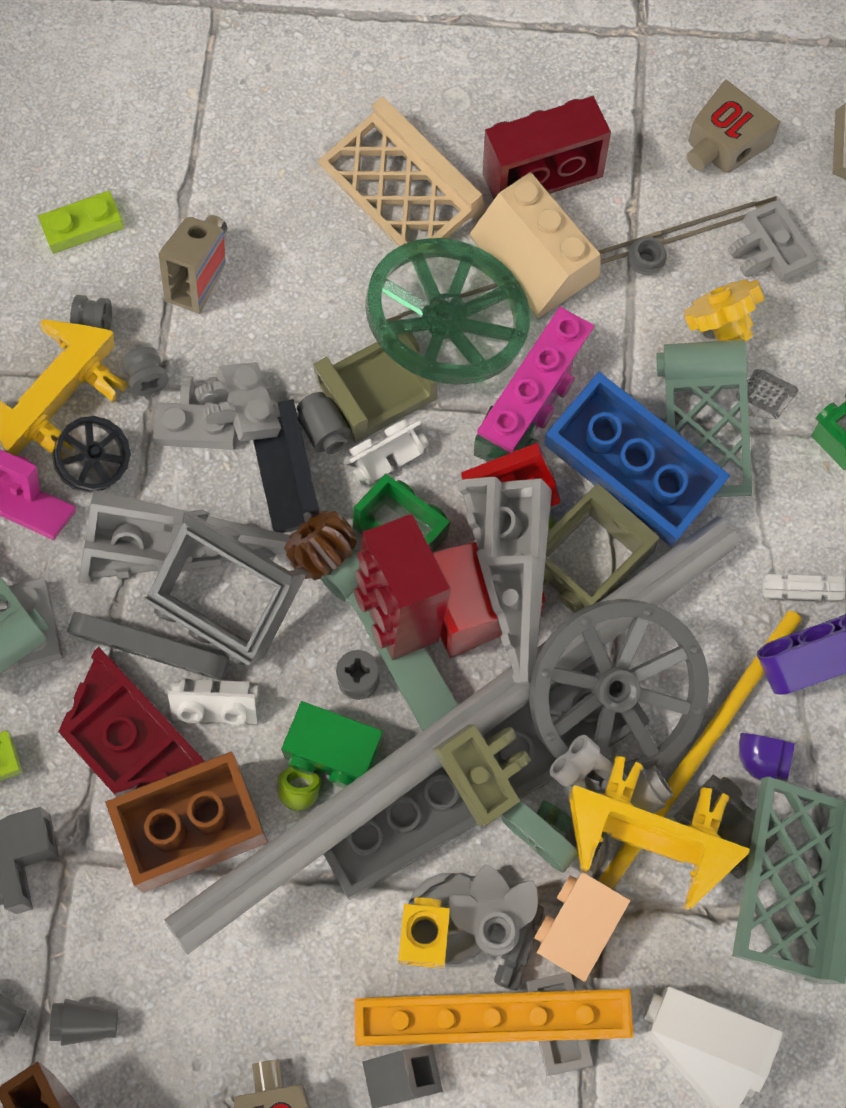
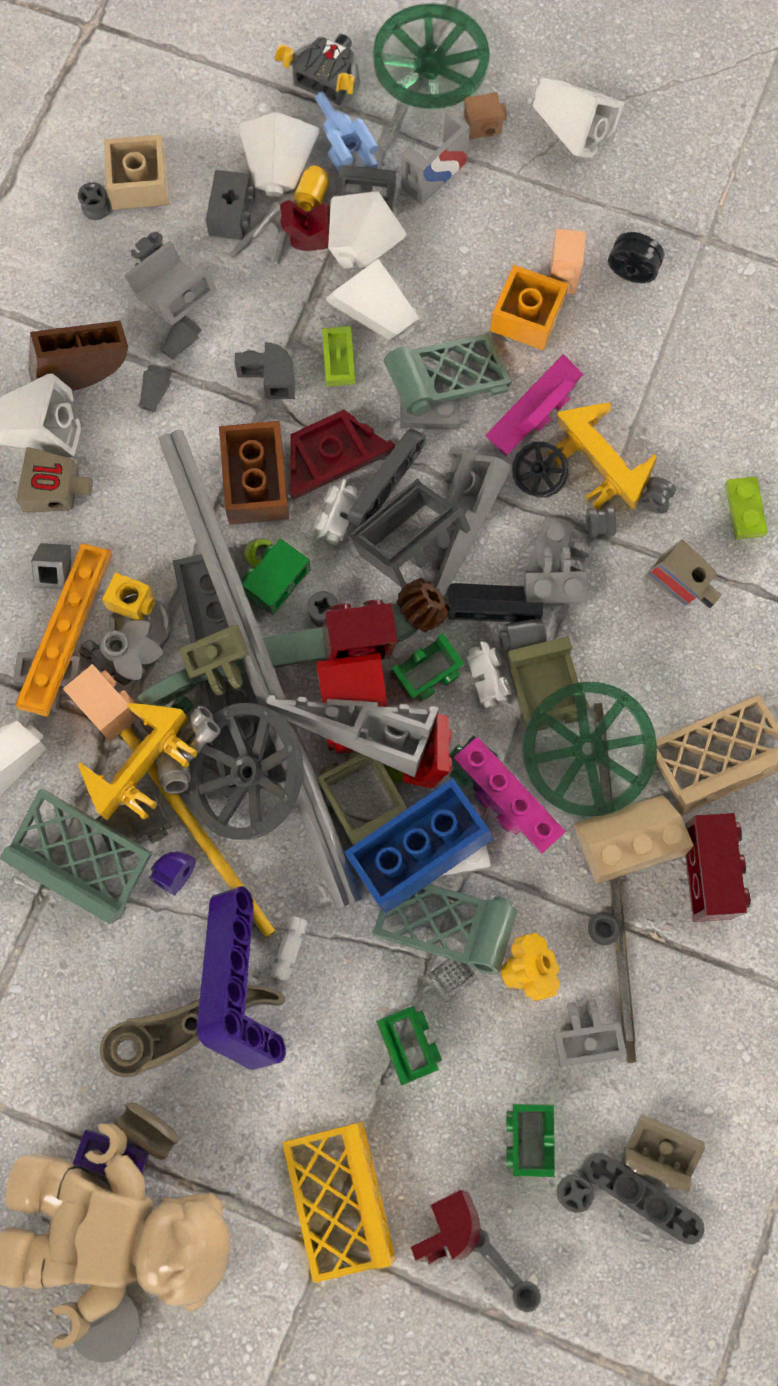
camera: 105 degrees right, 5 degrees up
(730, 130) = (706, 1038): dark tan torso -> none

